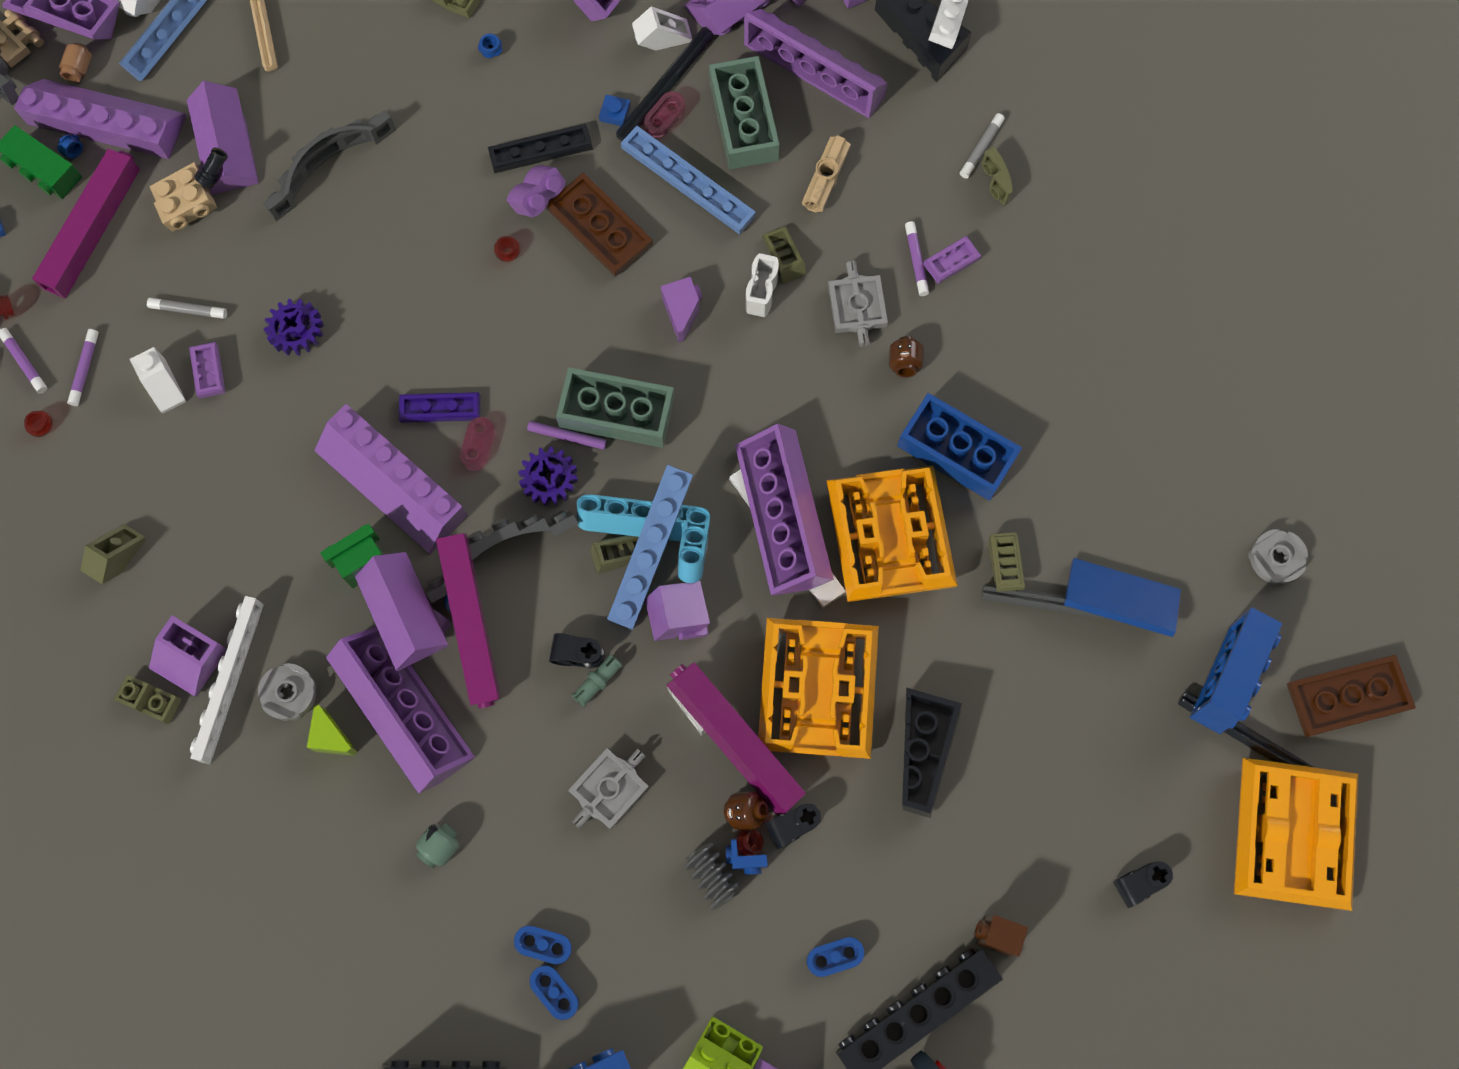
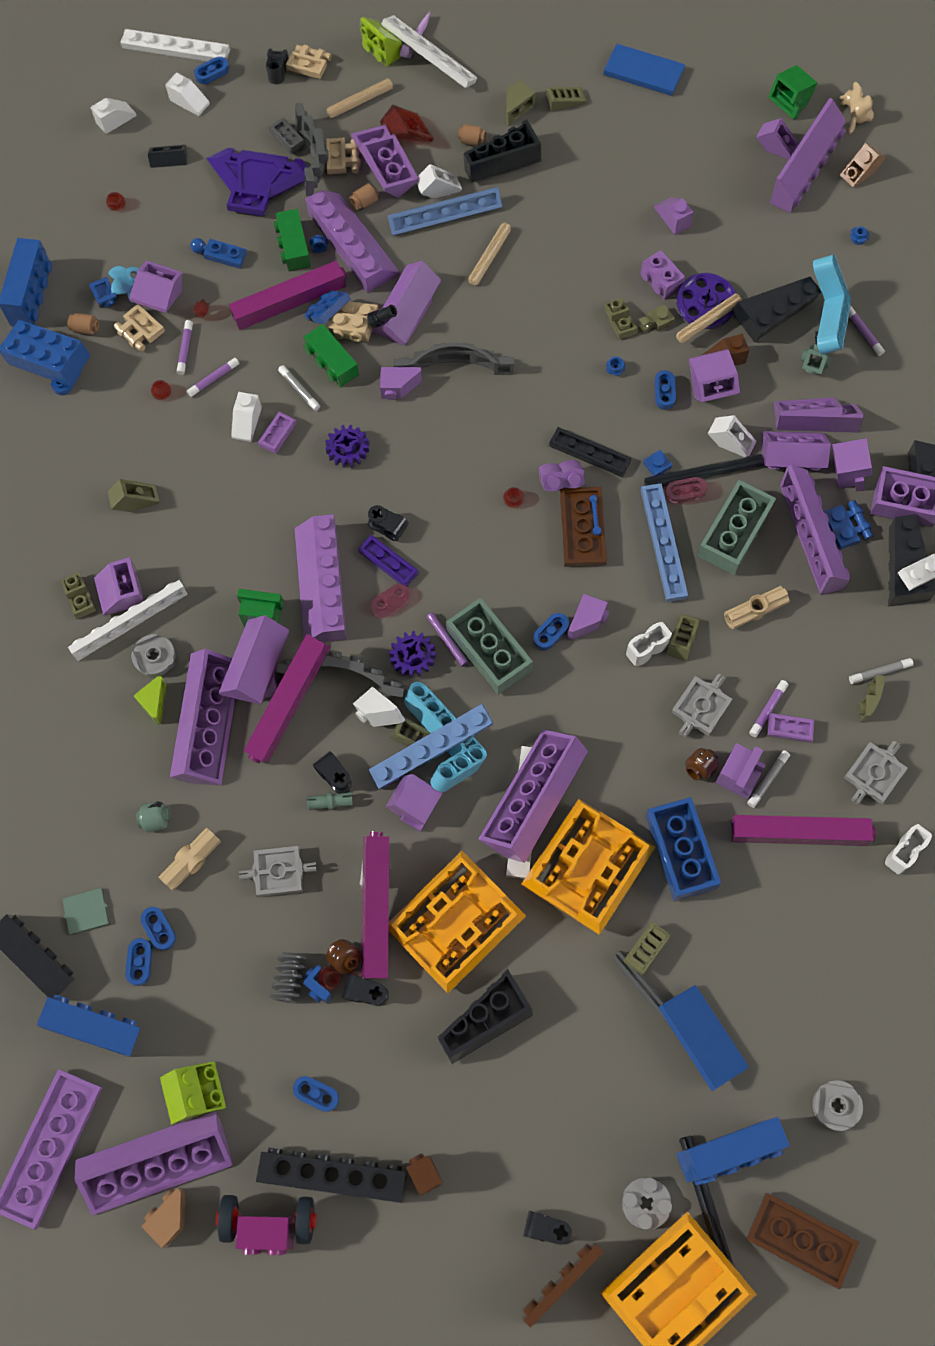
camera: 45 degrees right, 5 degrees down
(141, 203) = (327, 306): none -> blue plate
(191, 250) = (330, 356): none -> green brick
(286, 222) = (398, 381): none -> medium lavender slope
(407, 370) = (387, 522): none -> black piece
(453, 994) = (85, 911): none -> sand green piece
(512, 853) = (189, 859): none -> tan piece
(560, 35) = (665, 391): none -> blue plate
(564, 555) = (377, 709): none -> white slope
(617, 216) = (596, 530): none -> blue hinge
(659, 349) = (550, 632): none -> blue plate
(835, 38) = (841, 525): none -> blue plate
(944, 333) = (741, 770): none -> medium lavender plate
(972, 321) = (768, 779): none -> light grey bar
(1042, 343) = (802, 830): none -> magenta brick
(1058, 240) = (875, 772): none -> light grey plate
(1145, 284) = (908, 849): none -> white brick
(1201, 917) = (553, 1291): none -> reddish brown plate
(1216, 776) = (660, 1206): none -> light grey plate

